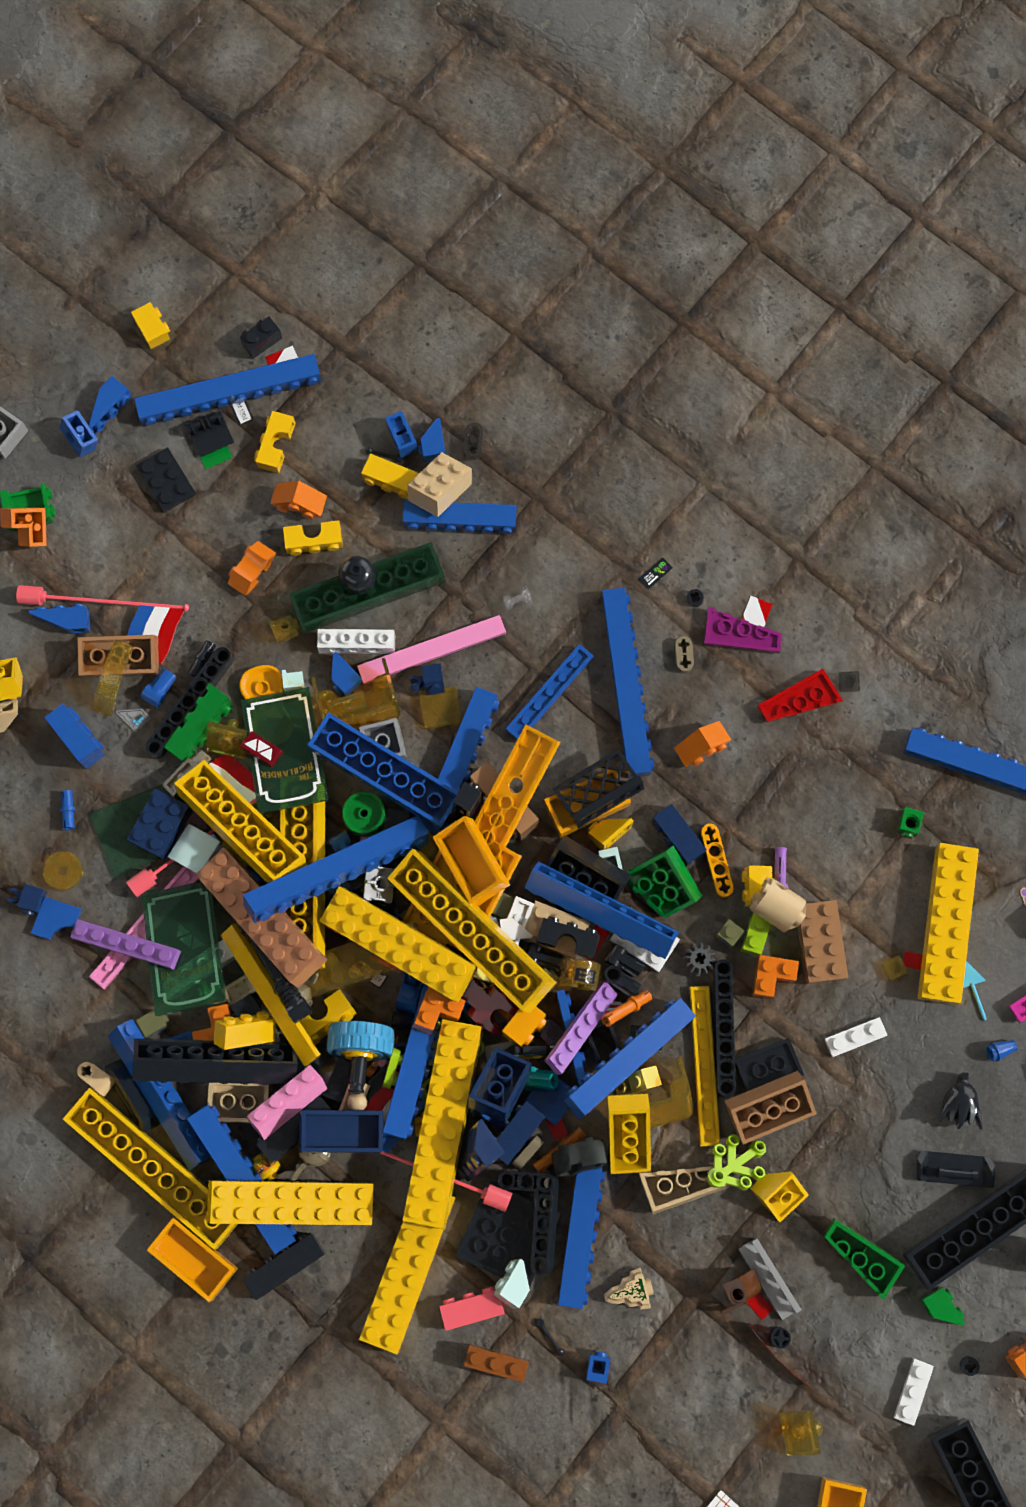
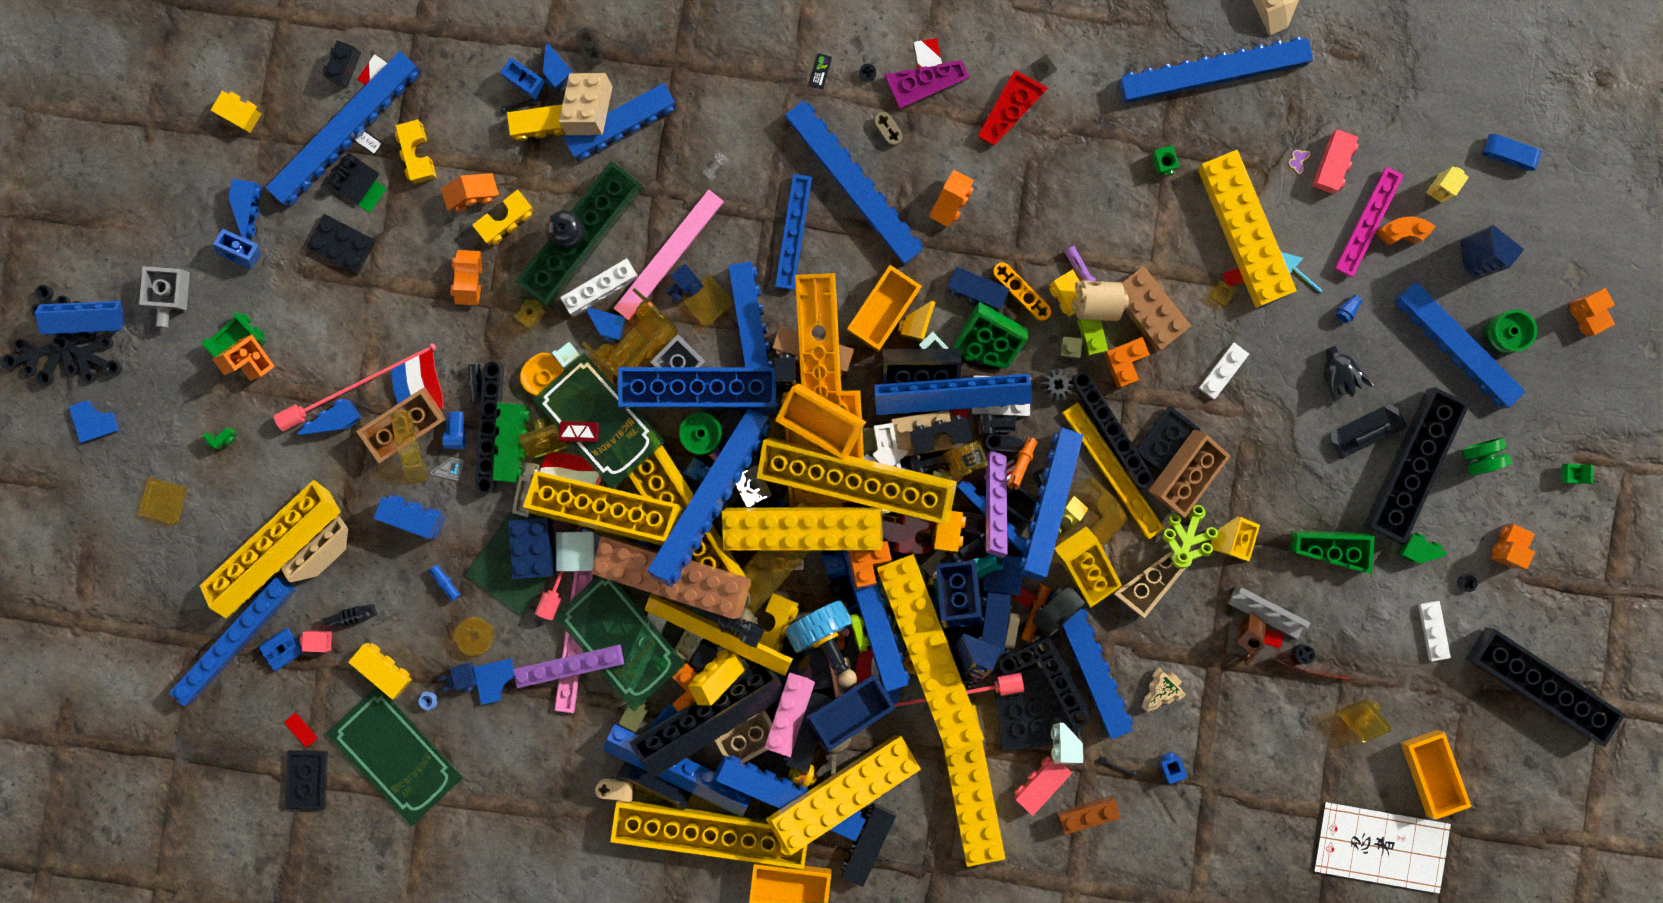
camera: 35 degrees left, 10 degrees up
(603, 803) = (903, 296): black fence -> none

